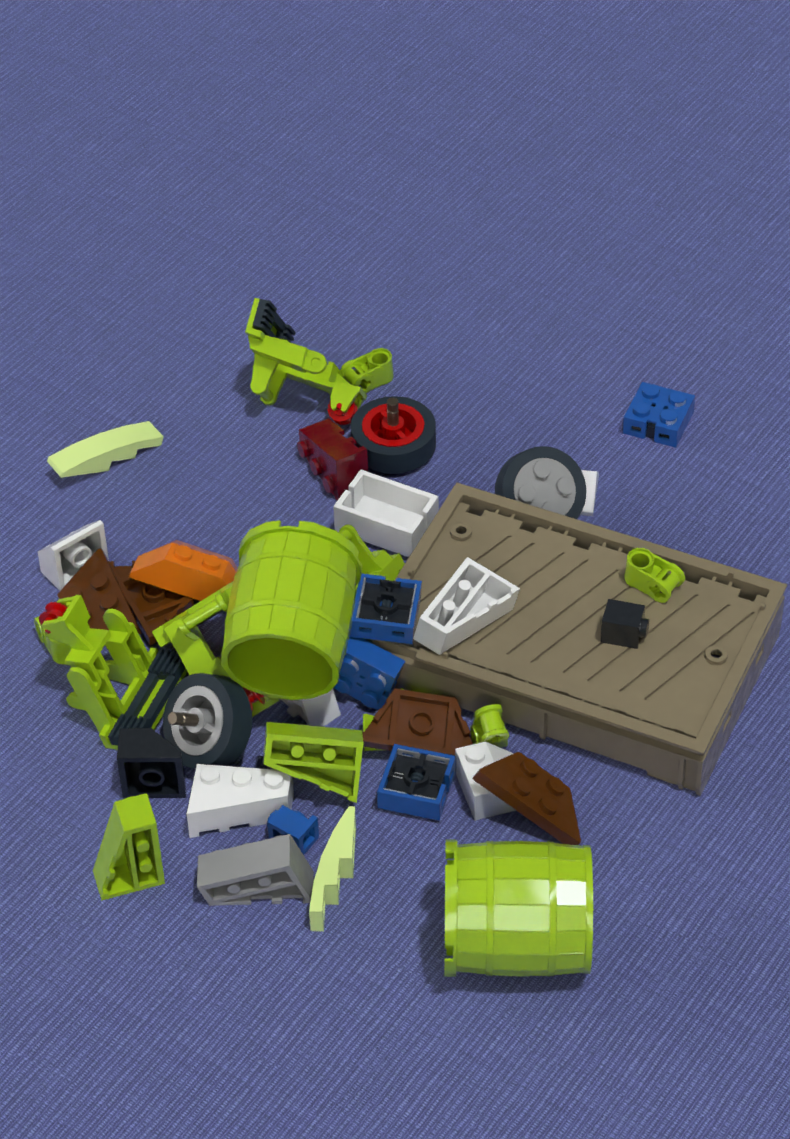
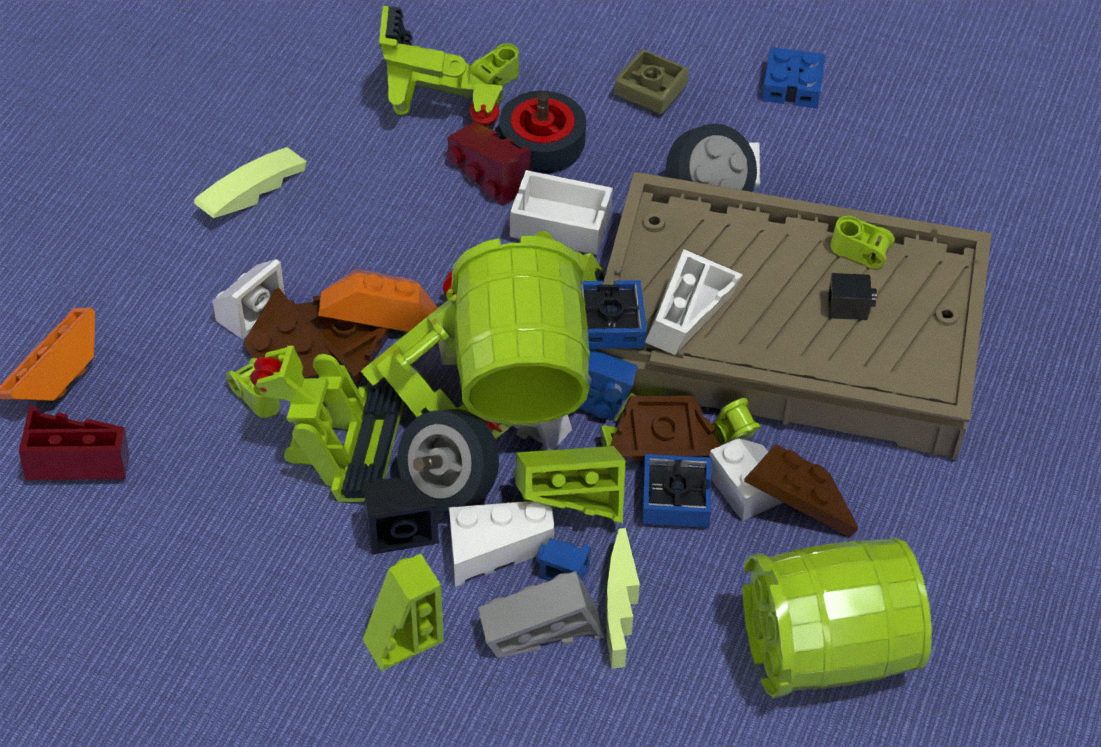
camera: 15 degrees left, 5 degrees up
(515, 401) = (651, 81): none -> olive brick

